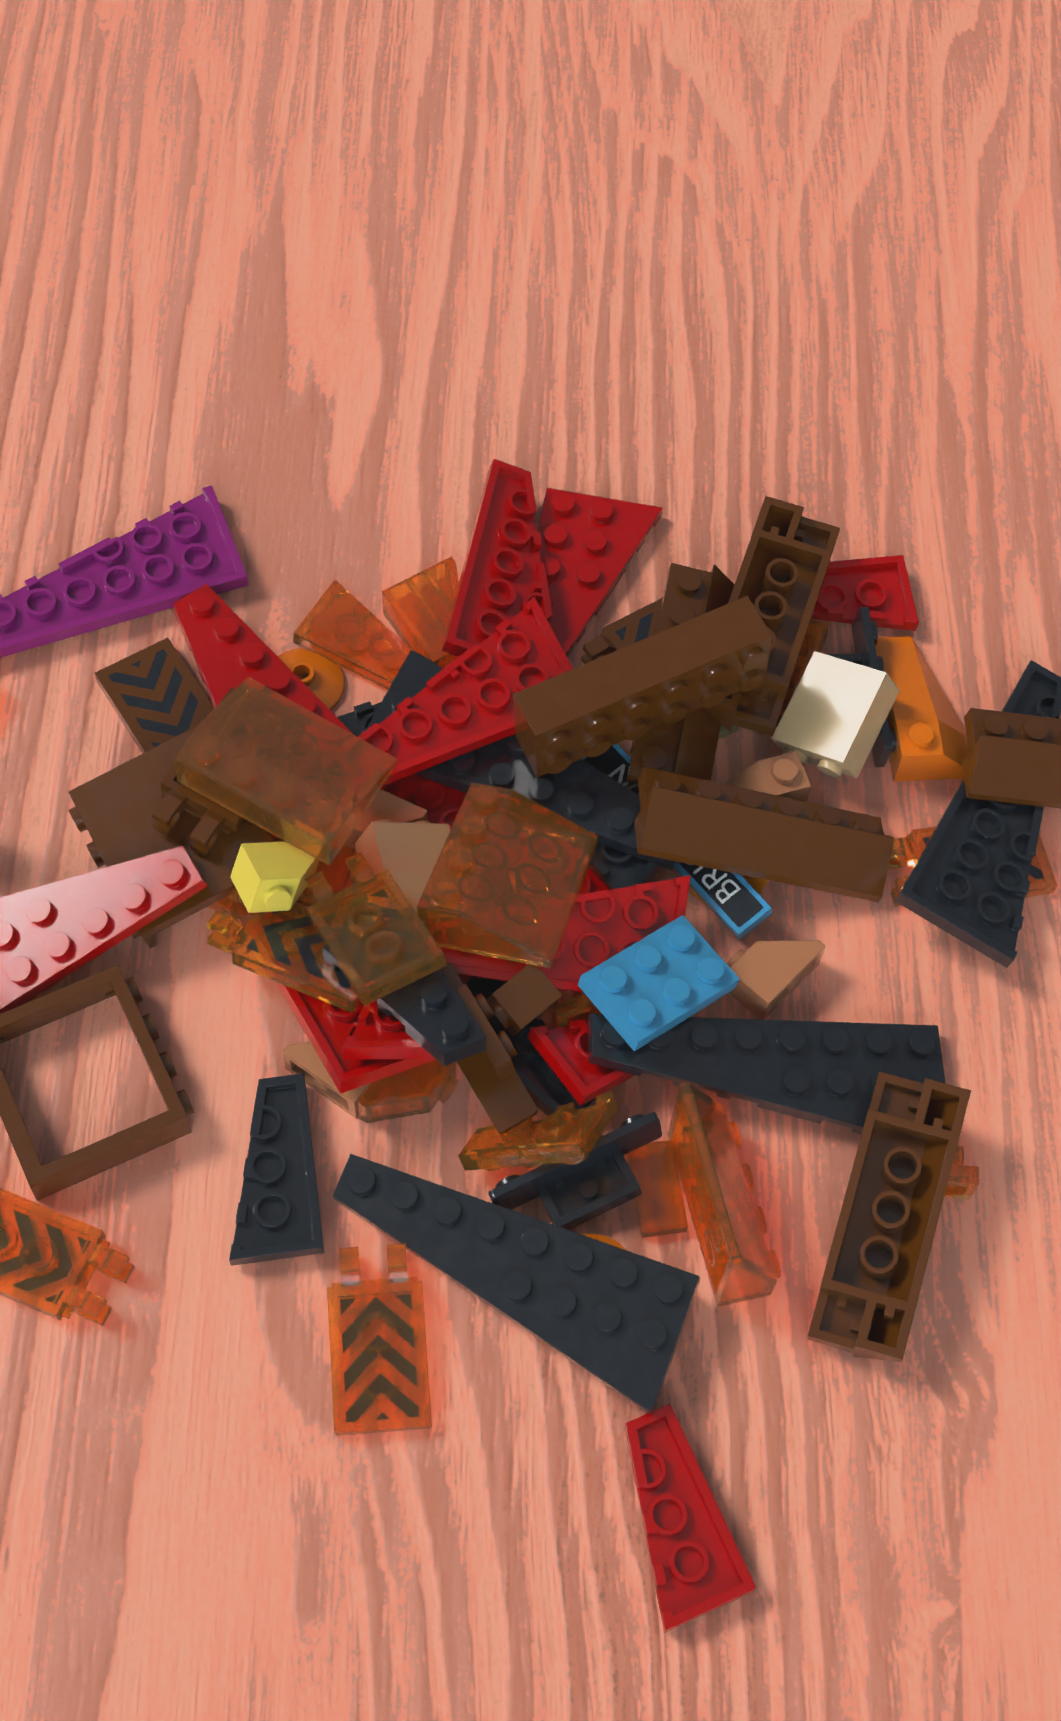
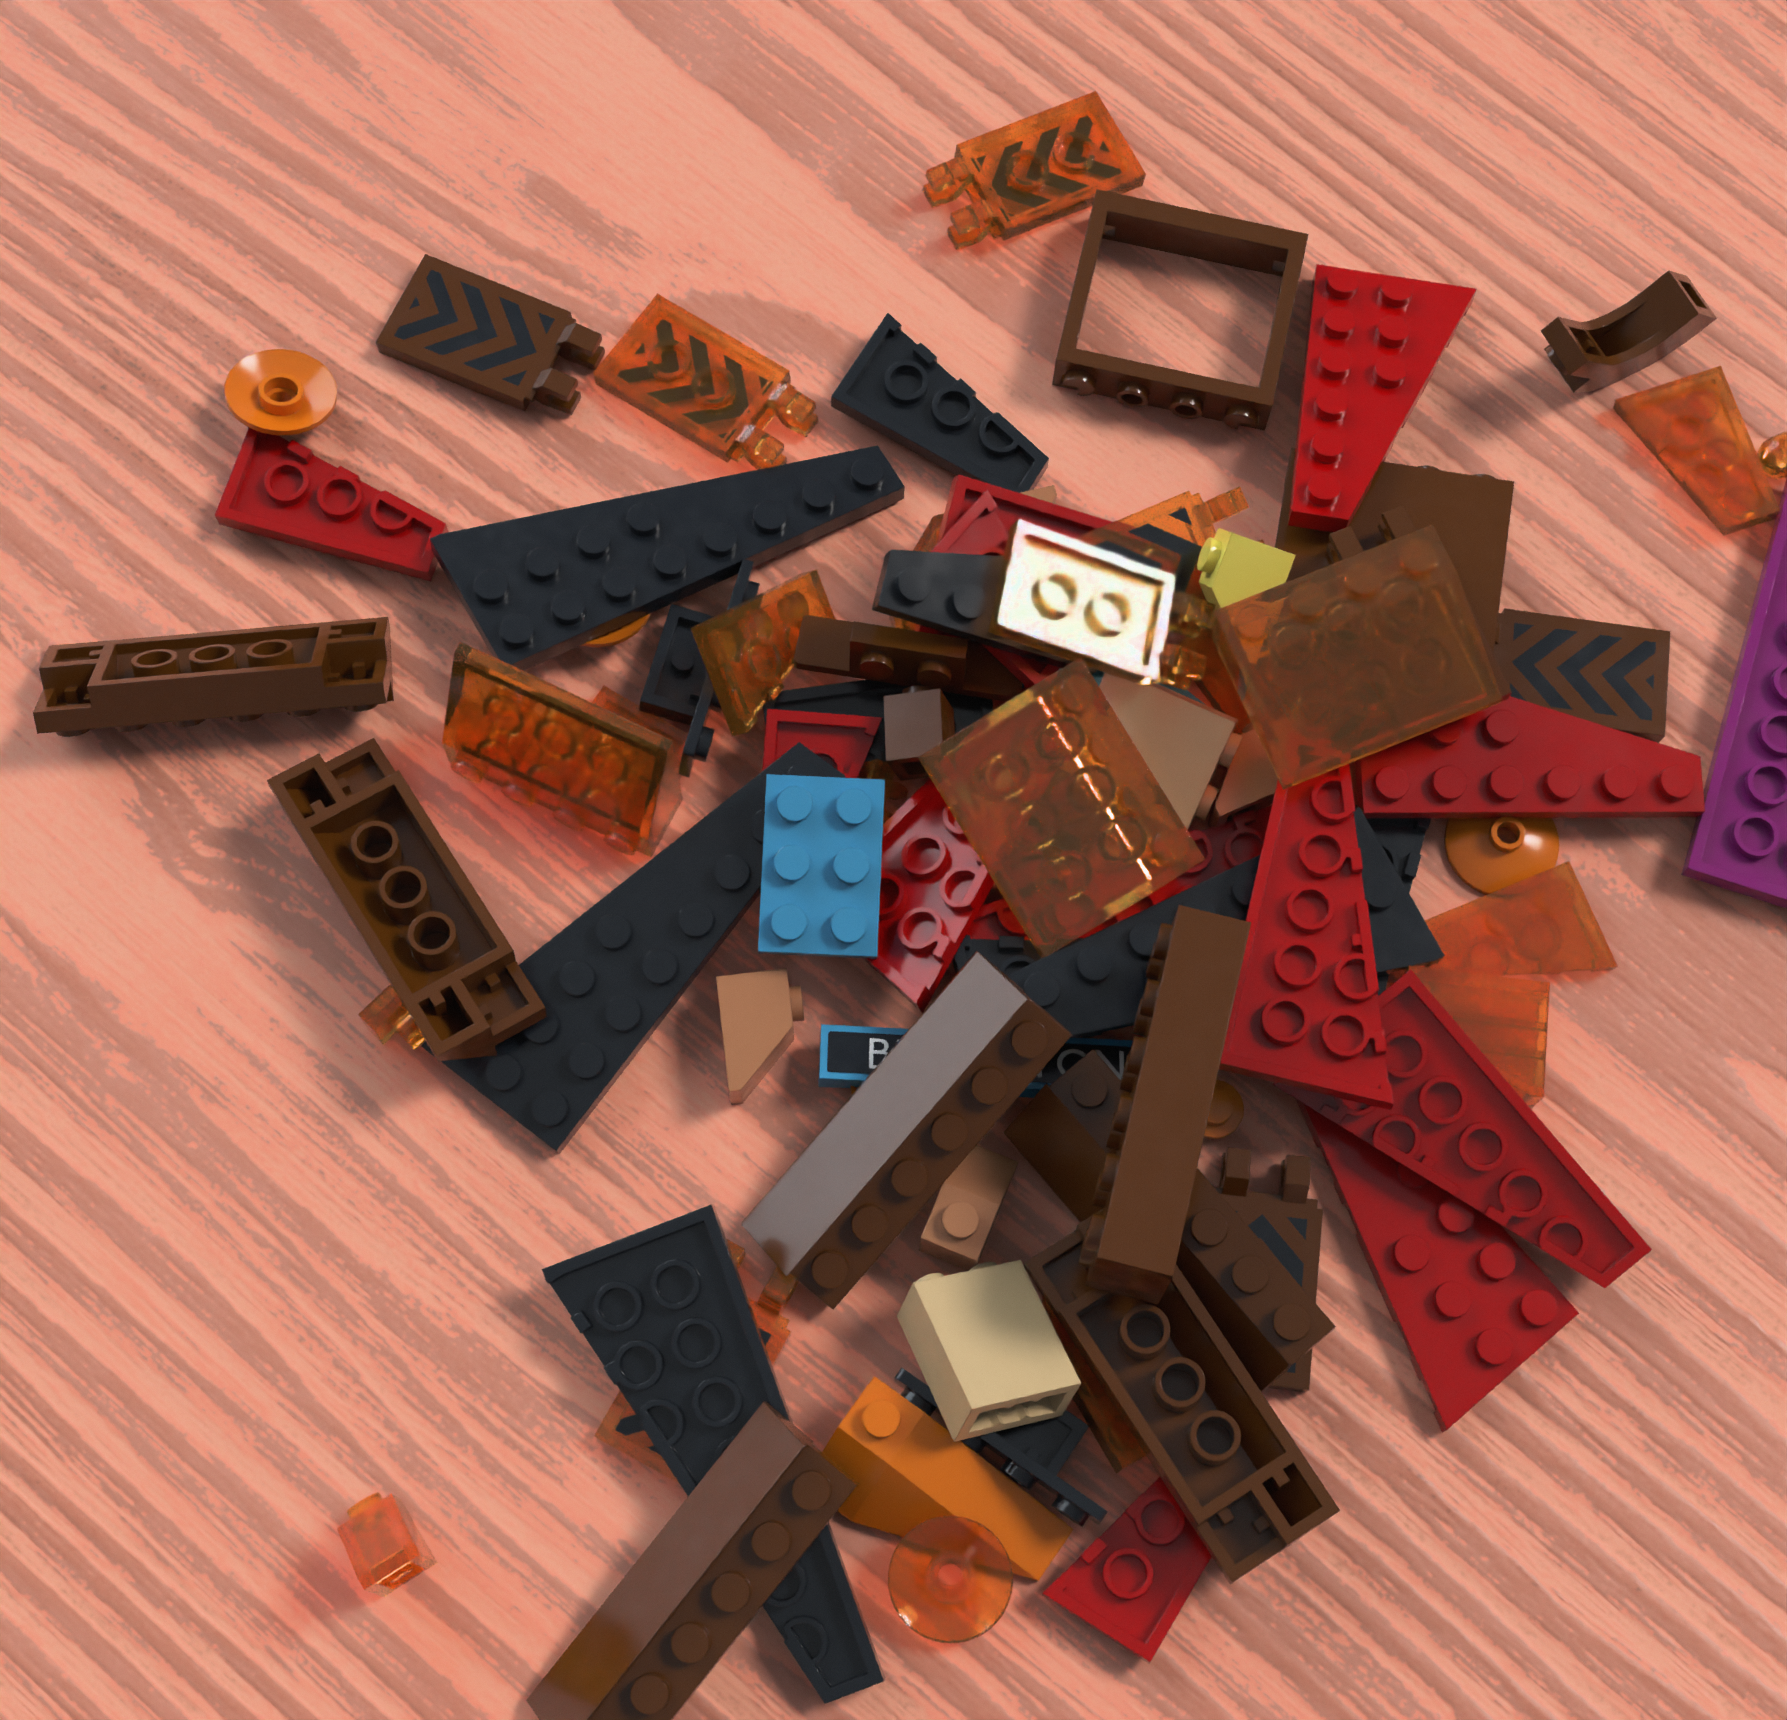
camera: 130 degrees right, 10 degrees up
(462, 1530) = (488, 337): none -> reddish brown tile
(606, 1622) = (280, 392): none -> orange dish
(861, 1484) = (215, 676): none -> reddish brown slope
(954, 666) = (943, 1610): none -> clear orange dish

